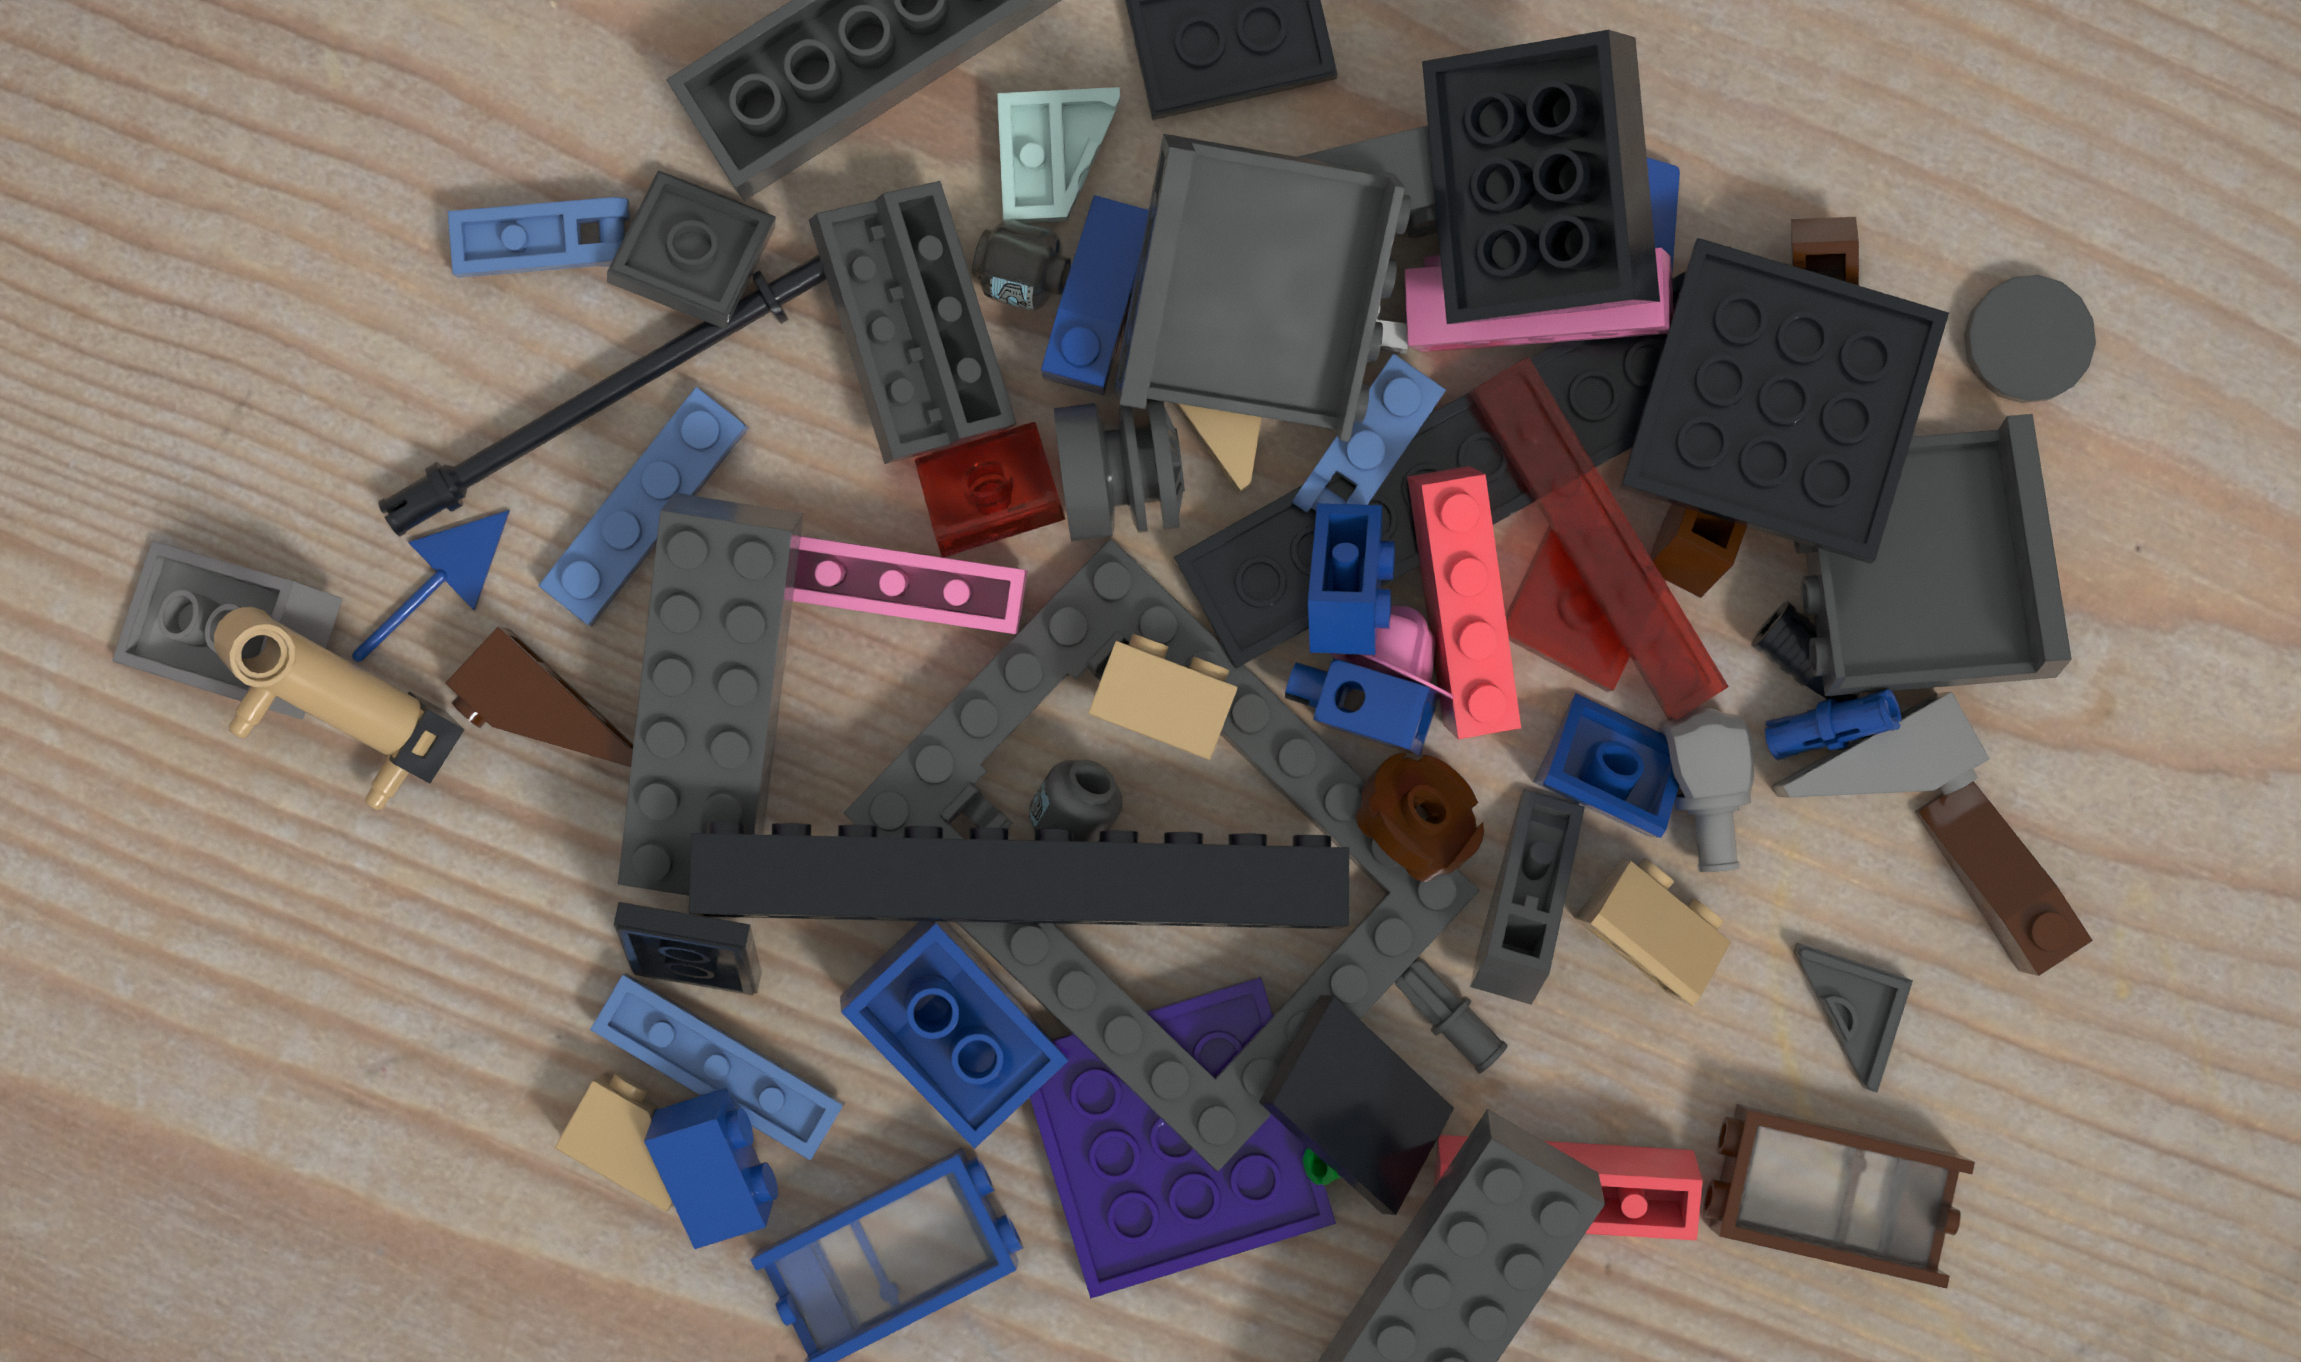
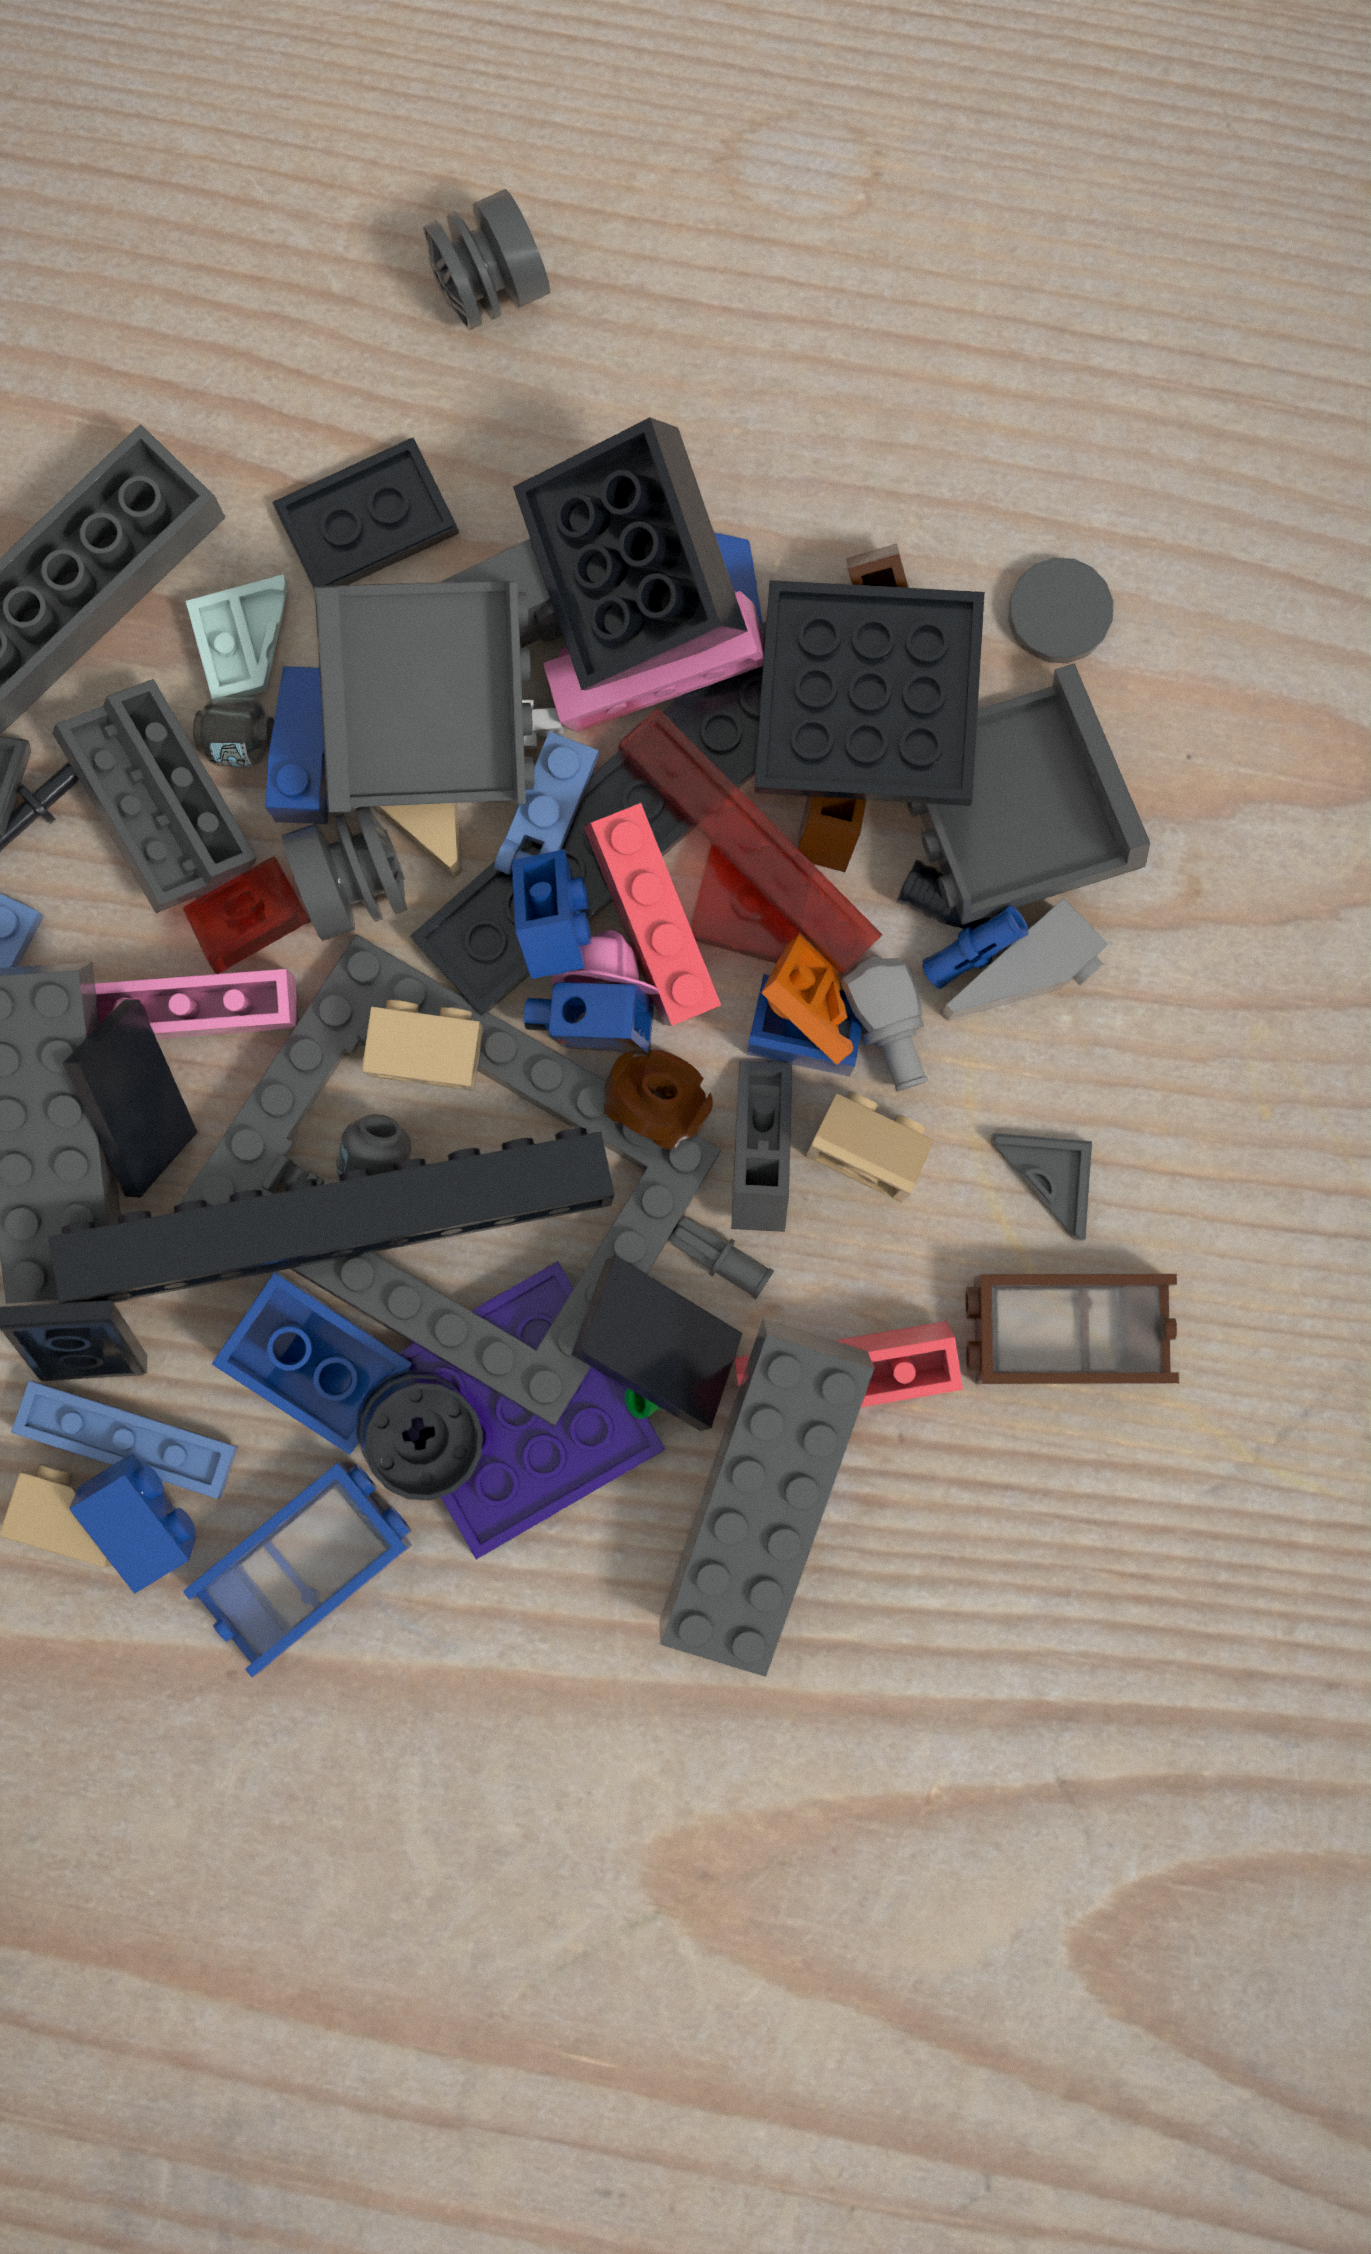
camera: 15 degrees left, 5 degrees down
(814, 682) = (131, 1097): none -> black tile
(1086, 1172) = (446, 1449): none -> black wheel
(1625, 741) = (807, 993): none -> orange wing
(2004, 880) = (1145, 1042): reddish brown slope -> none

